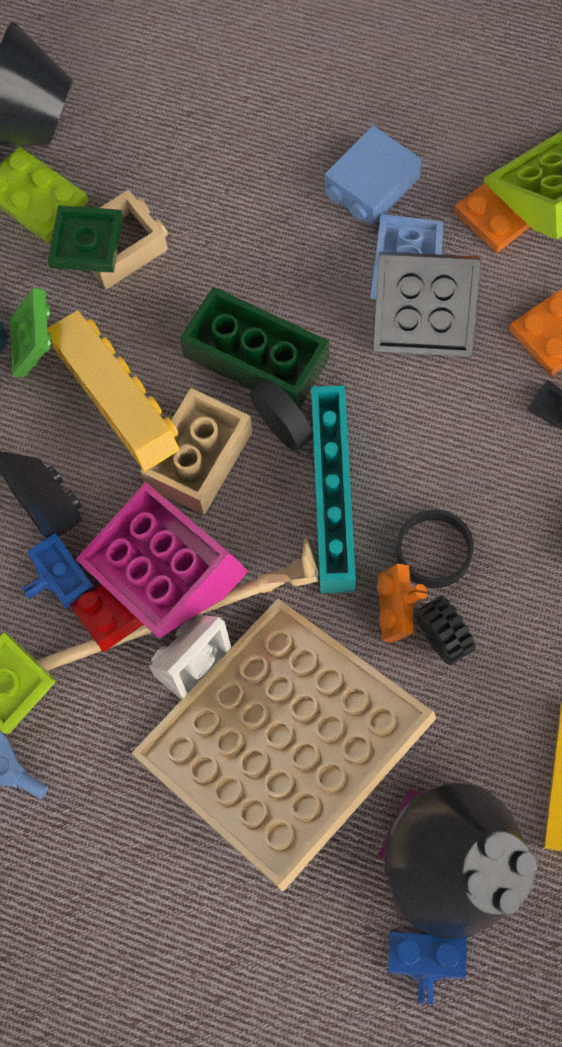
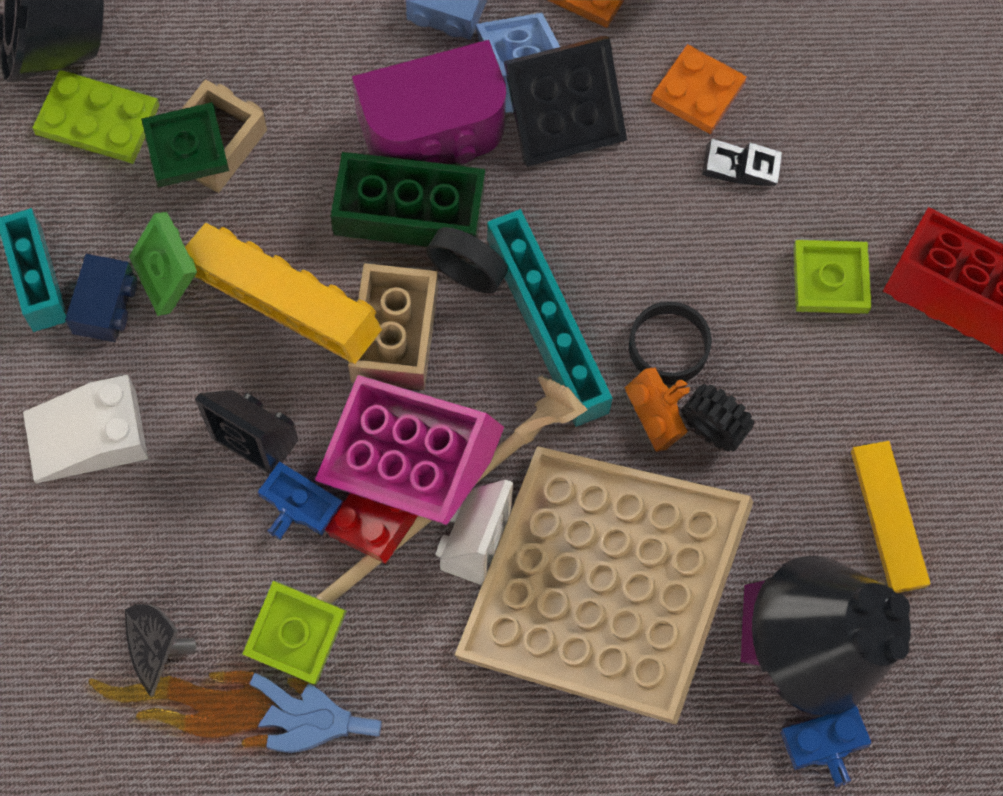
camera: 30 degrees left, 0 degrees up
(309, 273) = (434, 106): none -> magenta brick

